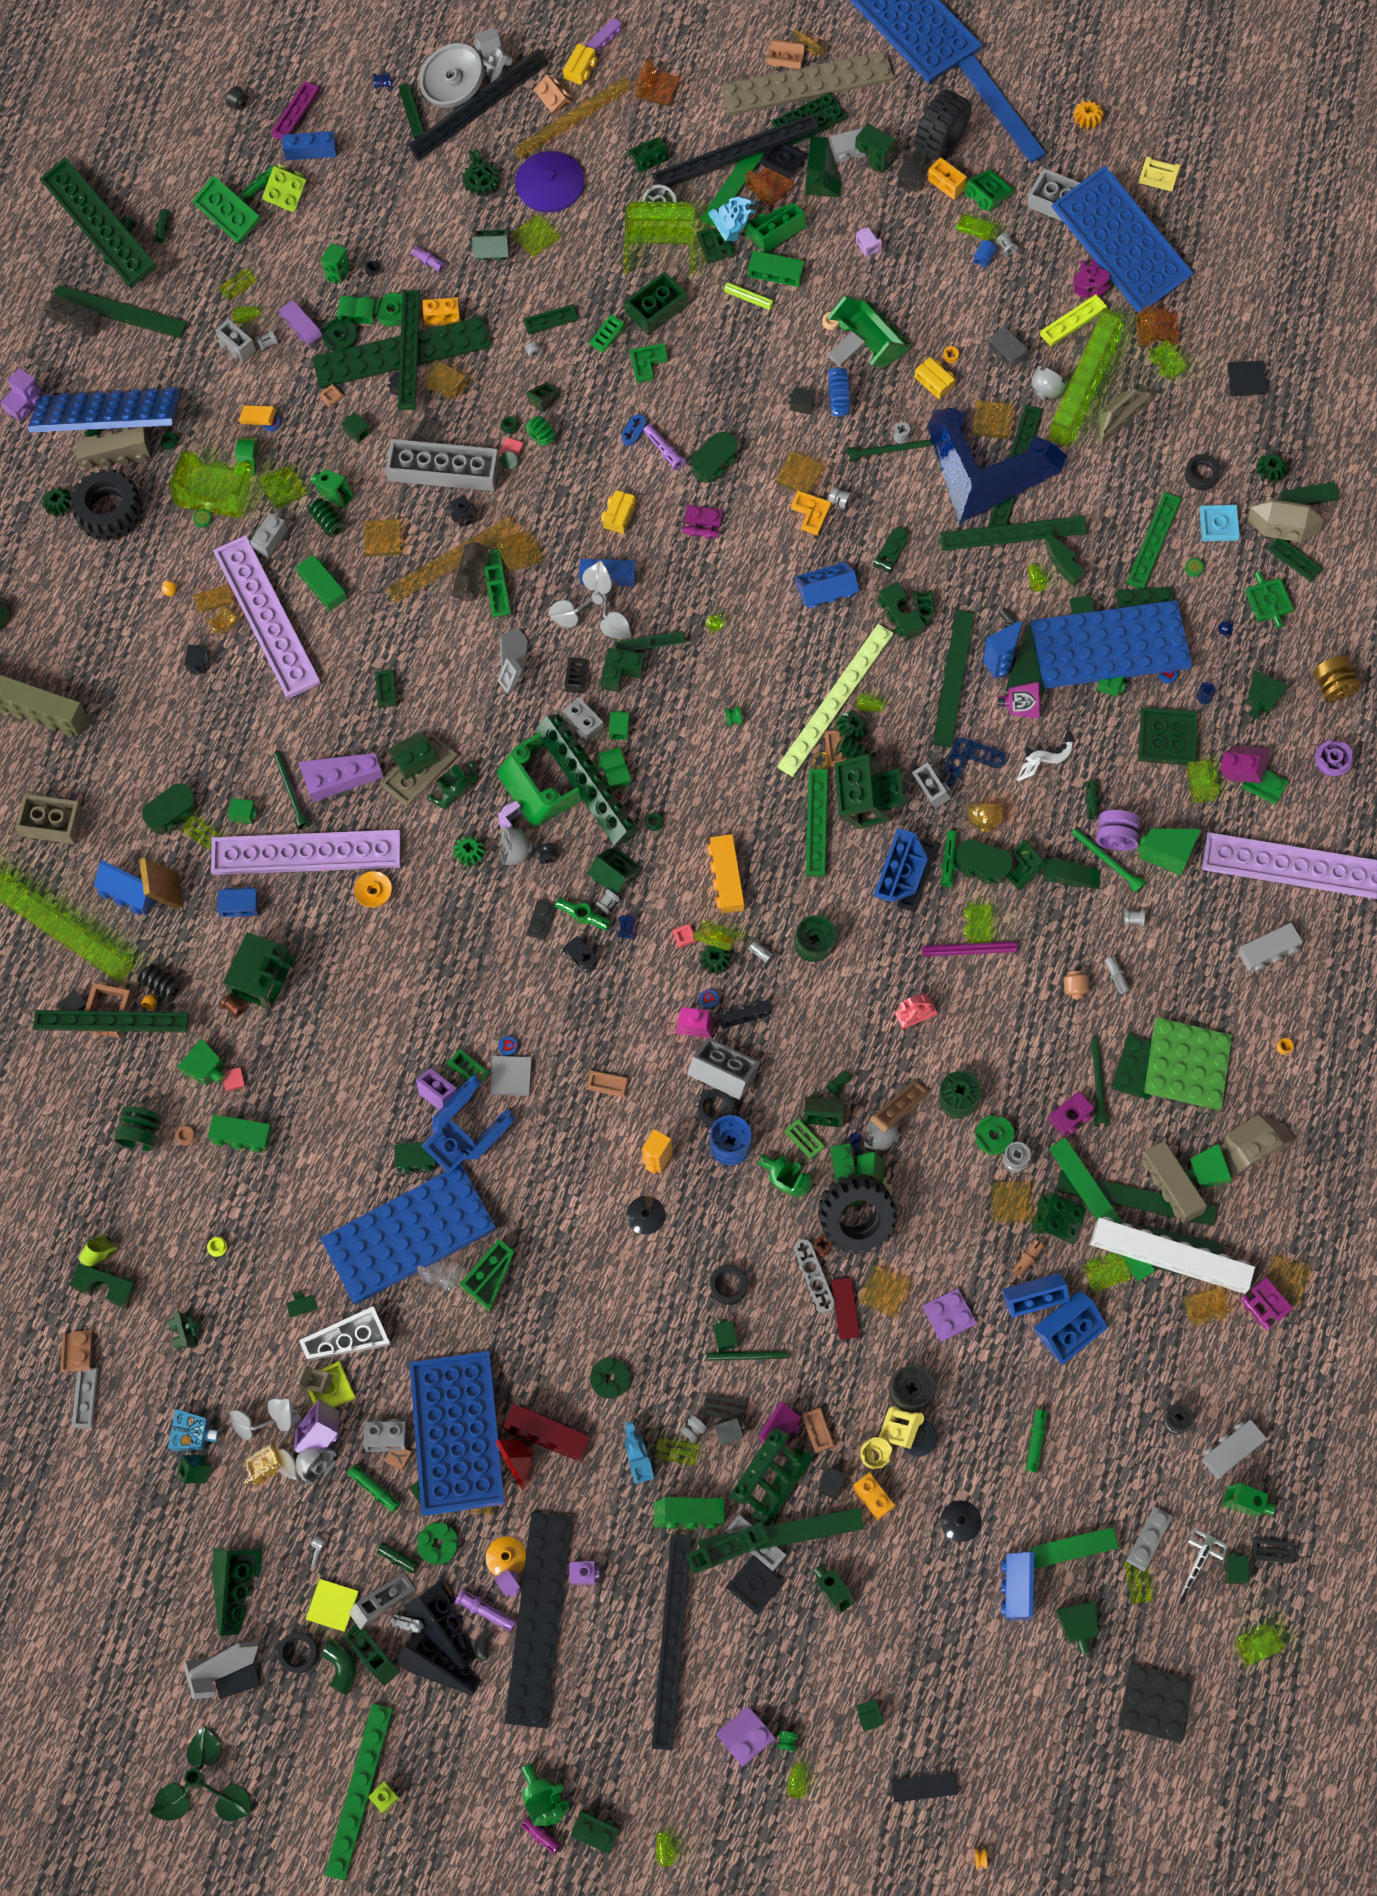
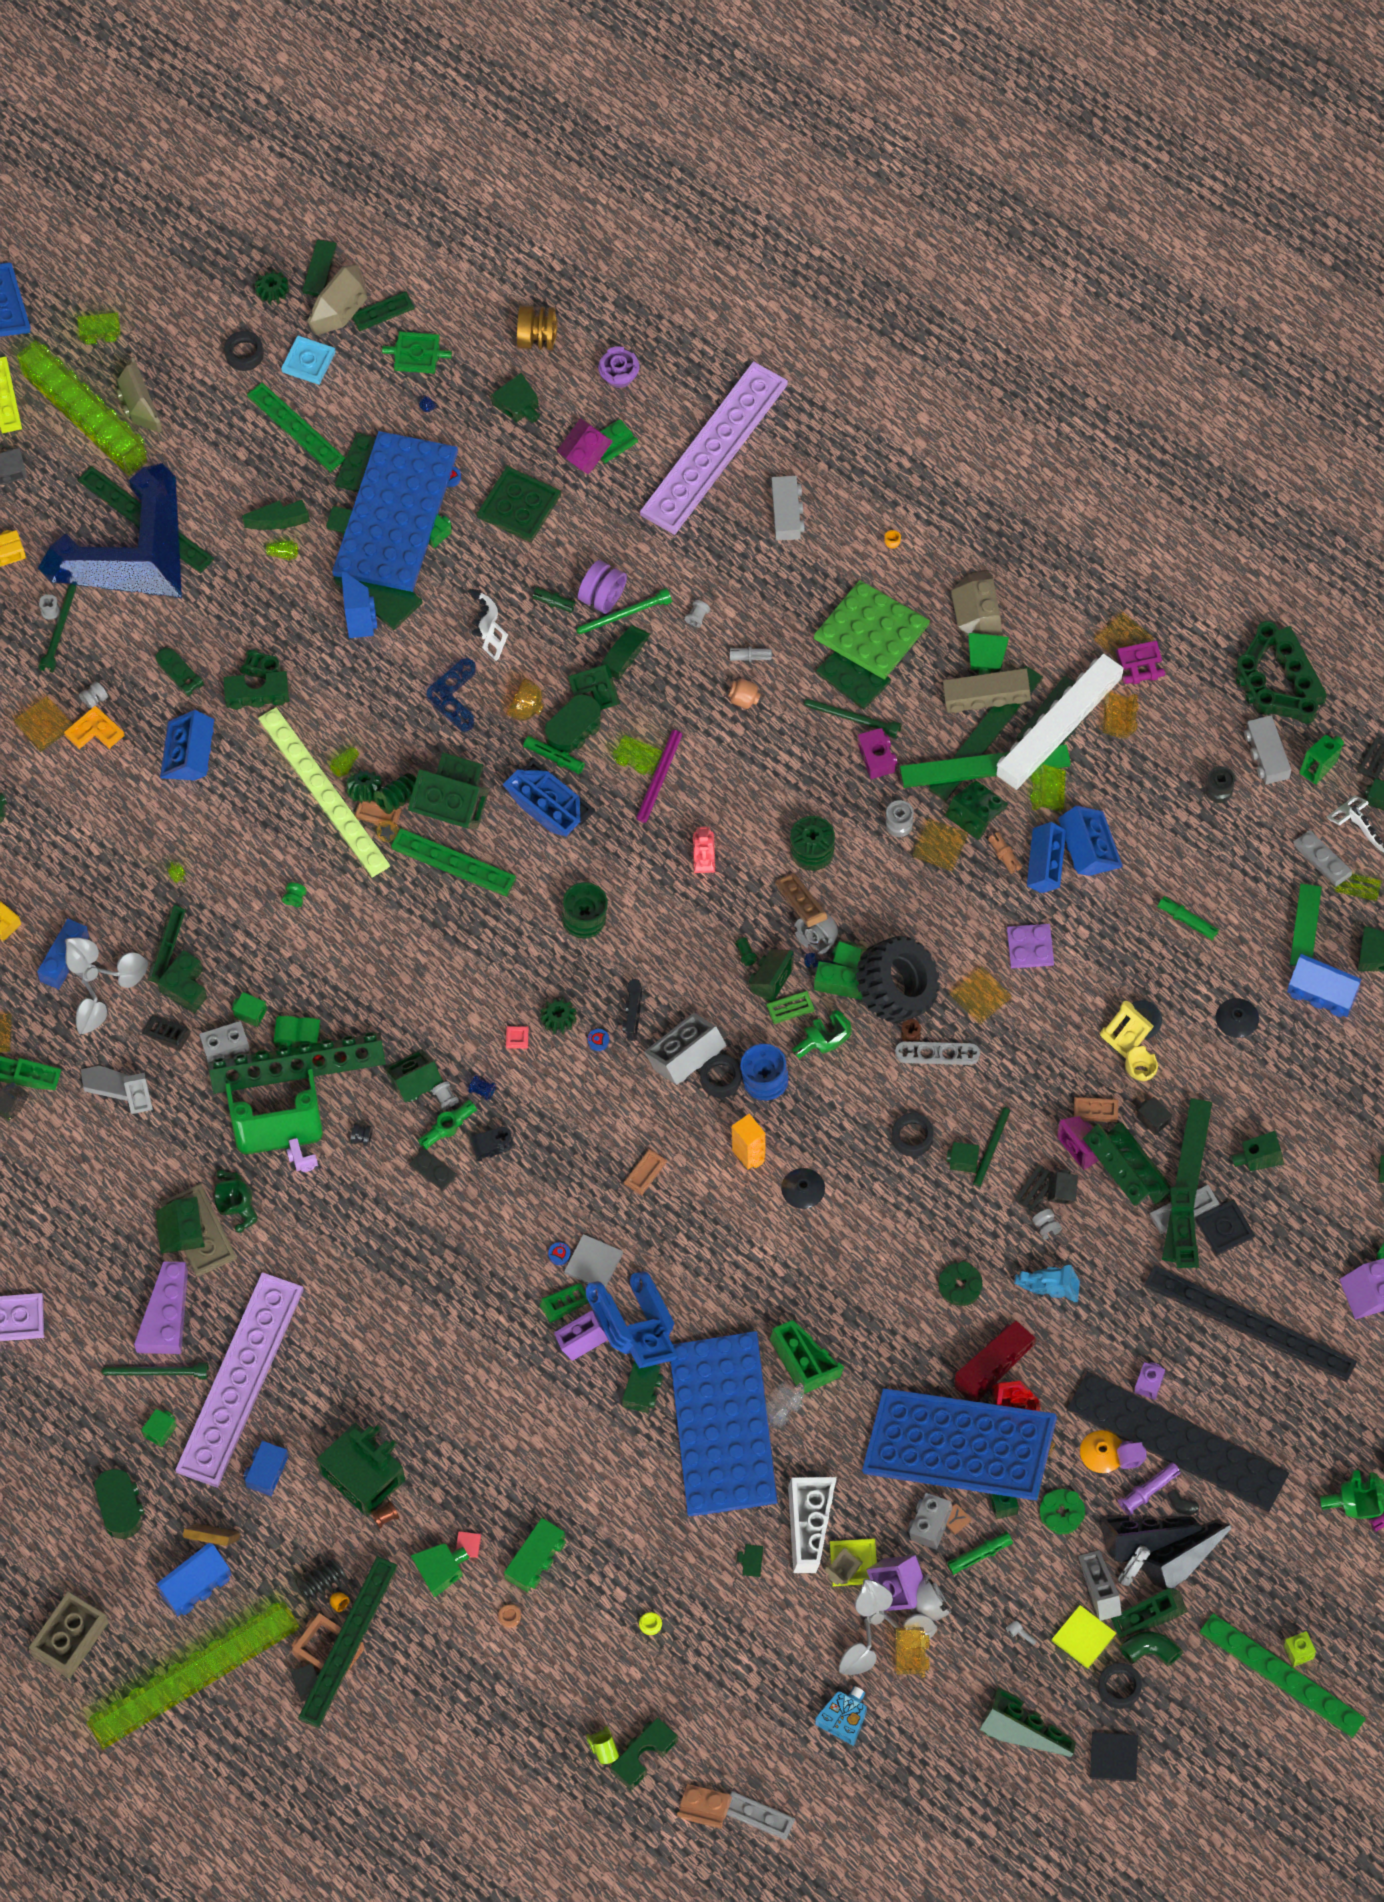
camera: 70 degrees left, 5 degrees down
(138, 1127) = (483, 1654): dark green wheel -> none
(171, 1800) = (1183, 1814): dark green plant -> none
(186, 1328) = (740, 1688): dark green hips -> none
(187, 824) = (148, 1499): clear neon green tile -> none
(194, 1469) = (884, 1726): dark green panel -> none
(202, 1672) = (1108, 1786): light grey piece -> none
(370, 881) = (318, 1314): light orange dish -> none
(386, 688) = (85, 1229): dark green plate -> none
(396, 1557) = (1060, 1555): dark green pin -> none
(475, 854) = (321, 1218): green gear -> none
(515, 845) = (336, 1161): light grey cylinder -> none
(654, 816) = (375, 1012): dark green plate -> none
(669, 1450) = (1071, 1235): clear neon green tile -> none
(688, 1513) = (1130, 1258): green wedge -> none
(695, 1022) = (622, 1058): dark pink torso -> none
(703, 517) = (43, 838): magenta plate -> none
(716, 935) = (535, 1002): clear neon green tile -> none
(726, 873) = (470, 969): light orange brick -> none
(760, 951) = (570, 970): light grey pin -> none
(845, 1308) = (983, 1037): dark red tile -> none
(873, 1496) = (1183, 1082): light orange brick -> none
(922, 1383) = (1093, 993): pearl dark grey wheel -> none
(931, 785) = (468, 736): light grey brick -> none
(953, 679) = (356, 672): dark green tile -> none
(983, 1134) = (872, 822): green plate -> none
(991, 419) = (78, 517): clear yellow plate -> none
(1008, 617) = (317, 594): pearl dark grey arm -> none
(1012, 533) = (220, 551): dark green tile -> none
(1023, 700) = (417, 614): magenta torso -> none
(1047, 384) = (68, 447): light grey cylinder -> none
(1156, 325) = (54, 323): clear orange bracket -> none
(1168, 848) = (644, 549): green slope -> none
(1194, 567) = (345, 403): green tile -> none
(1202, 781) = (583, 493): clear neon green brick -> none
(1207, 688) = (490, 444): clear blue bush -> none
(1247, 378) = (157, 267): black tile -> none
(1321, 1401) = (1280, 703): none -> dark green brick

